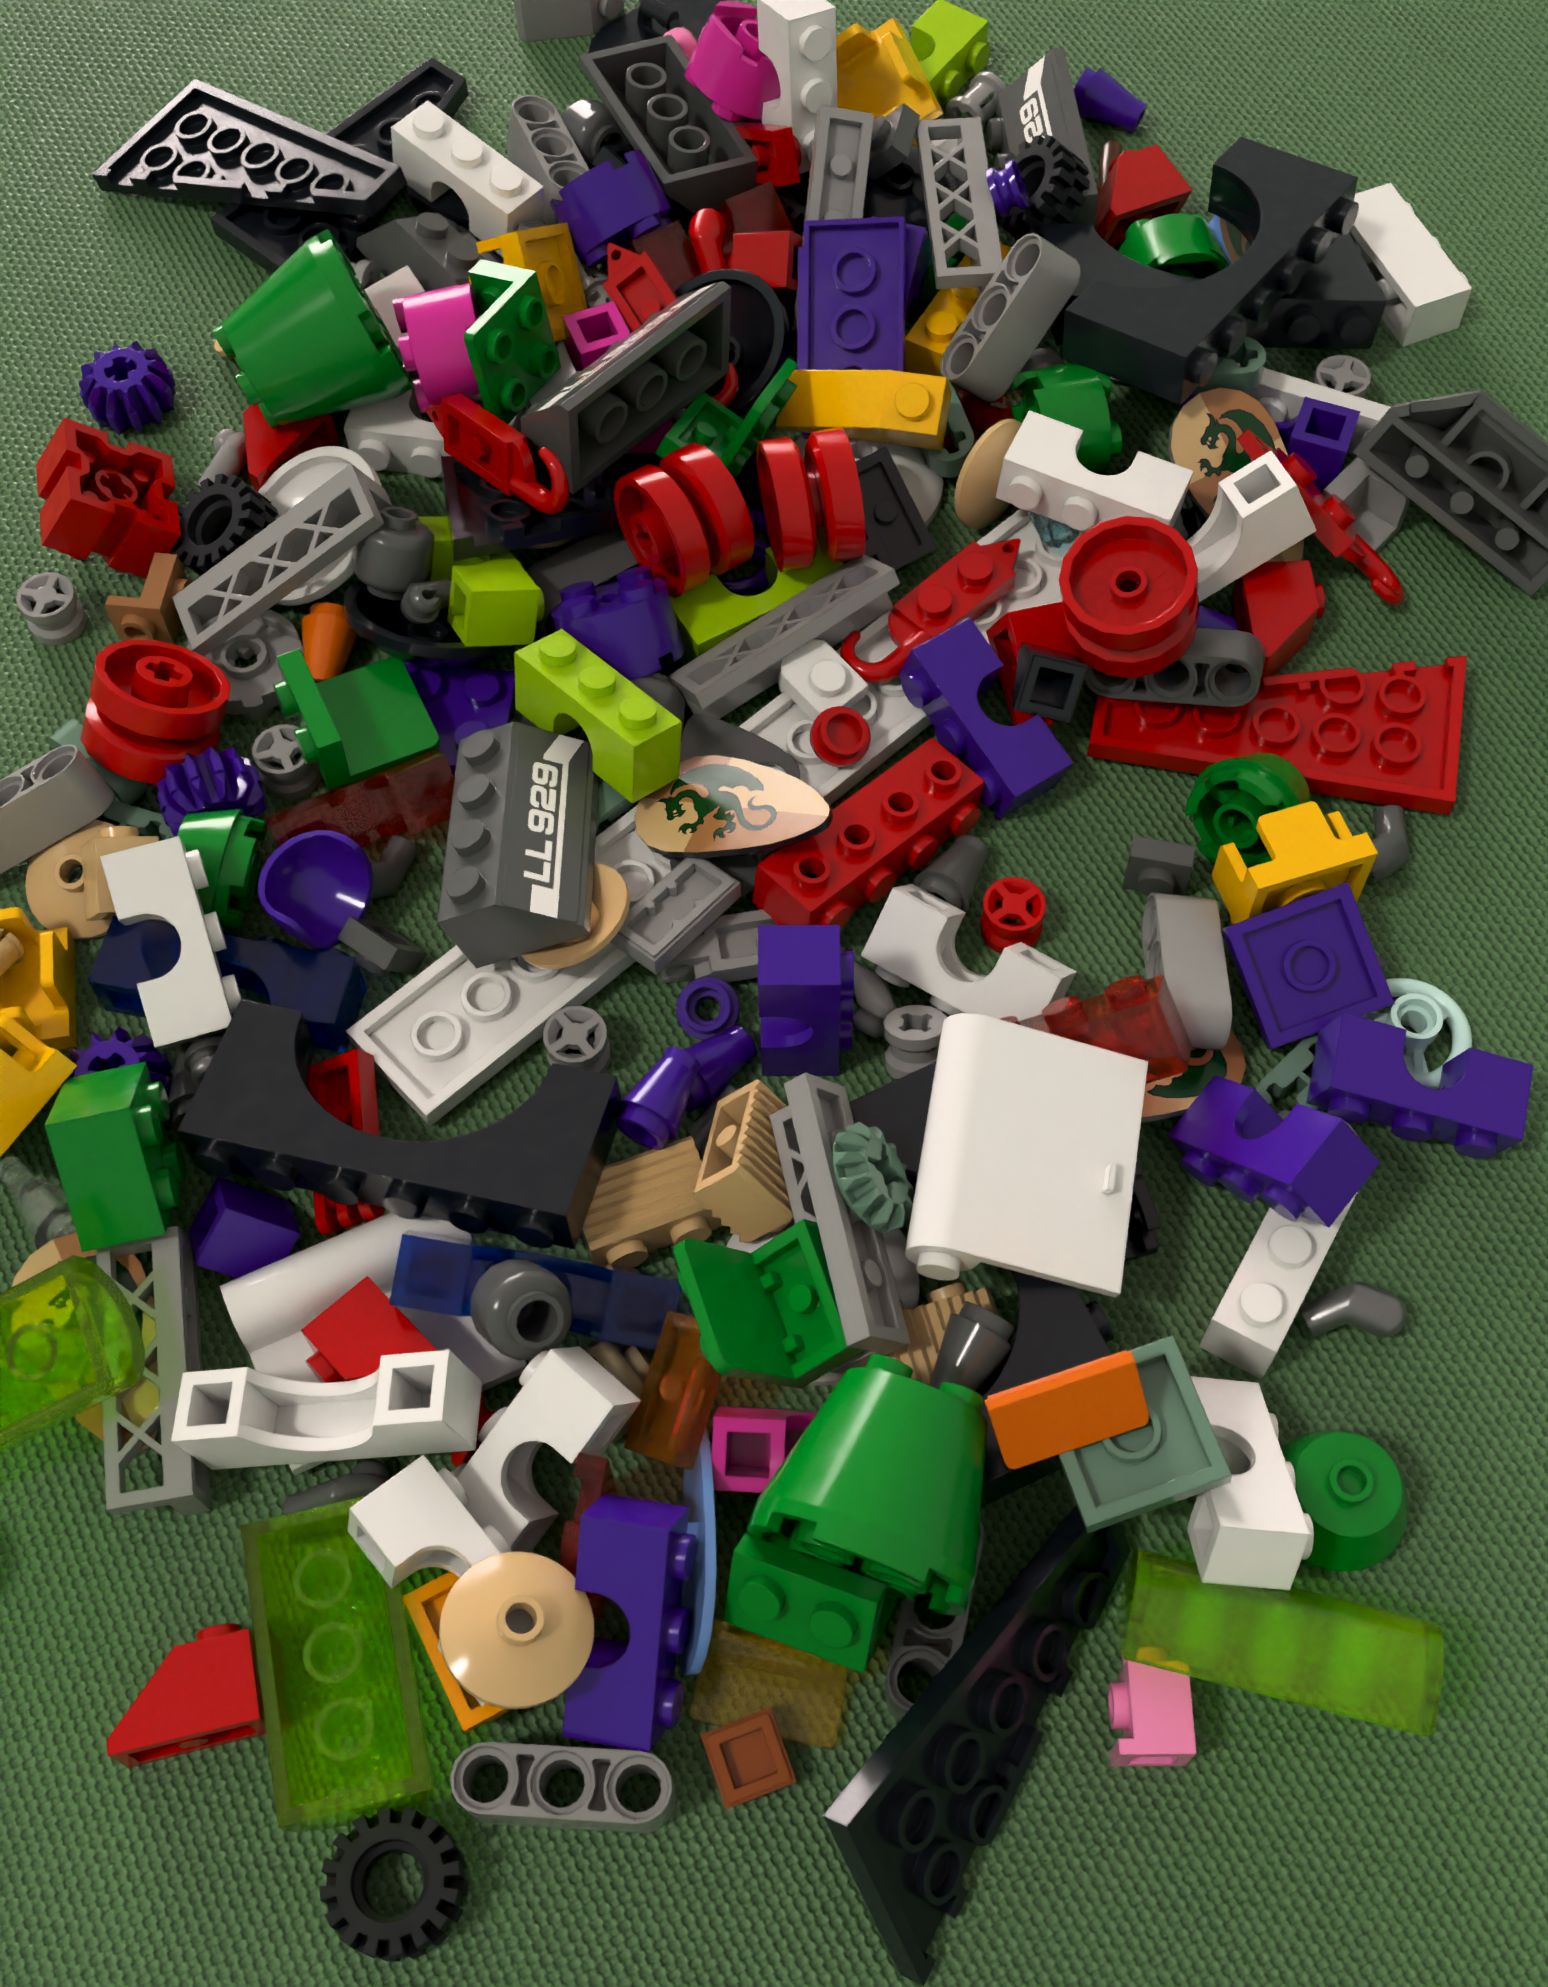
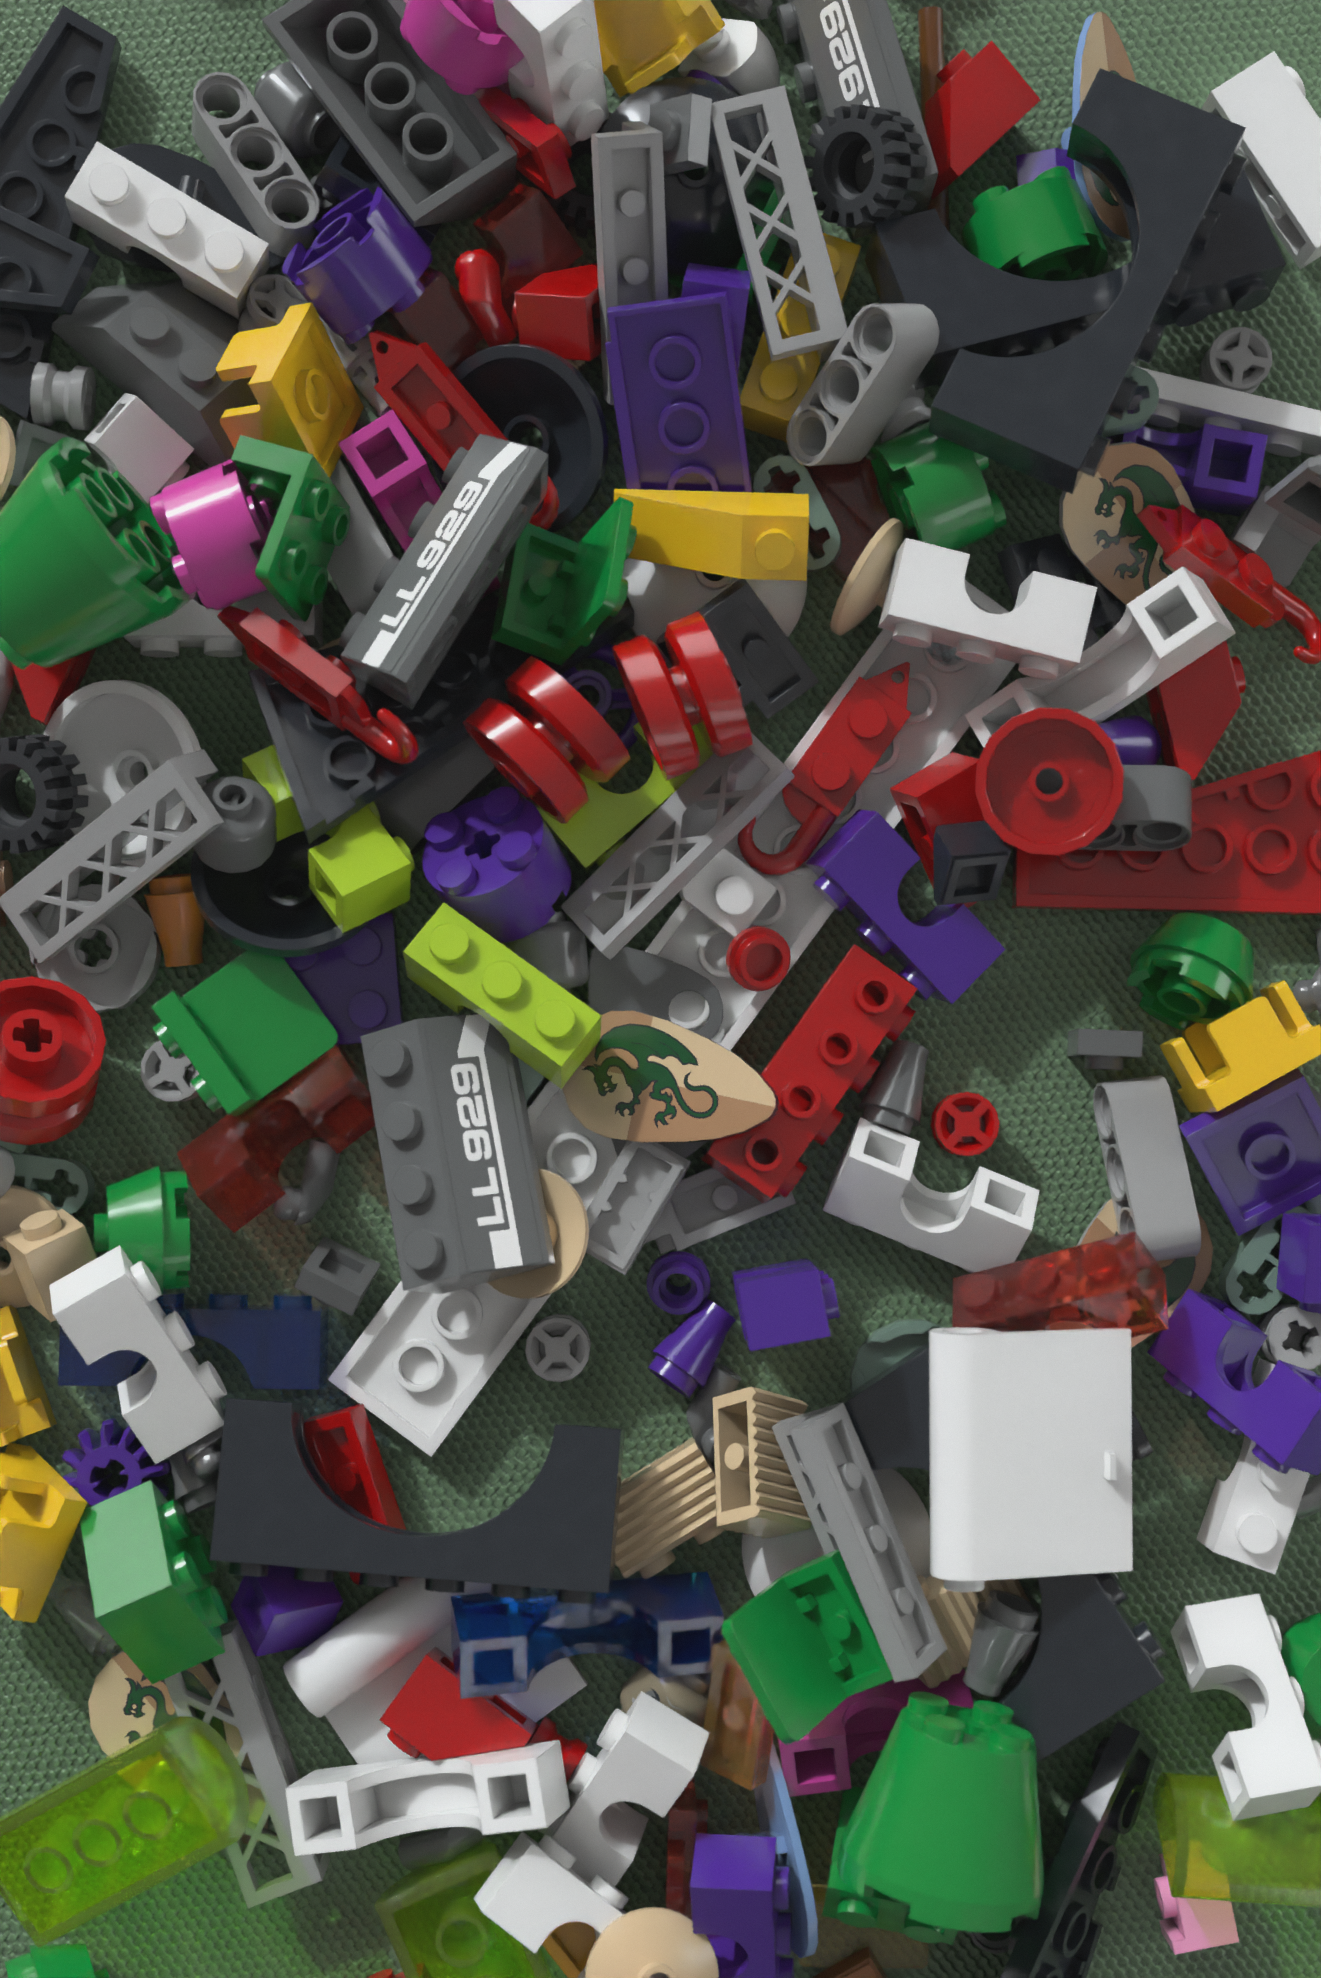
camera: 15 degrees left, 25 degrees up
(210, 784) = (115, 1142): dark purple gear -> none
(316, 885) = (258, 1253): dark purple helmet -> none
(425, 601) = (281, 876): dark grey arm -> none
(521, 1309) = (583, 1677): dark grey head -> none
(659, 1100) = (661, 1422): dark purple cone -> none
(872, 1177) = (874, 1484): sand green gear -> none
(874, 1000) = (838, 1237): light grey arm -> none
(912, 1037) = (892, 1308): light grey wheel -> none
(1007, 188) = (833, 197): dark purple bush -> none
(1068, 1410) = (1104, 1723): orange slope -> none
(1155, 1463) = (1161, 1720): sand green plate -> none

